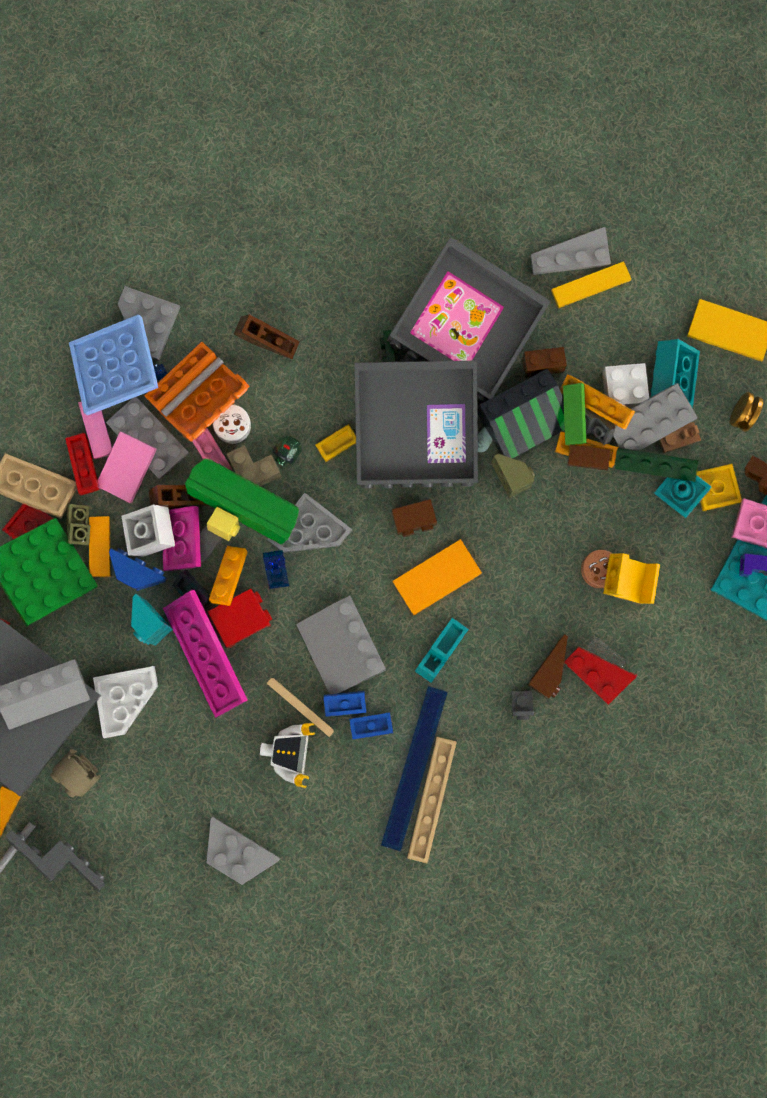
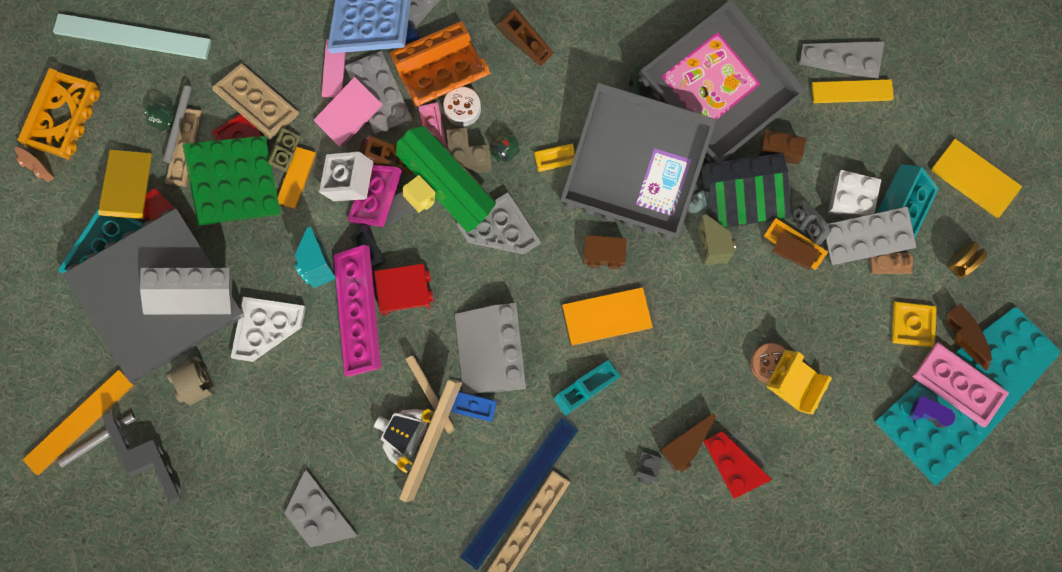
camera: 20 degrees right, 5 degrees down
(82, 464) = (308, 96): red plate -> none
(134, 571) = (320, 212): blue slope -> none
(192, 386) = (437, 59): light grey bar -> none
(228, 575) = (406, 245): light orange plate -> none
(276, 569) = (454, 254): clear blue slope -> none
(317, 750) = (430, 440): none -> tan tile
(371, 726) = (492, 437): blue plate -> none
(574, 414) = (795, 205): bright green tile -> none
(603, 404) = (821, 200): light orange tile -> none
(656, 464) = (860, 280): dark green plate -> none
(682, 494) = (878, 314): teal plate -> none

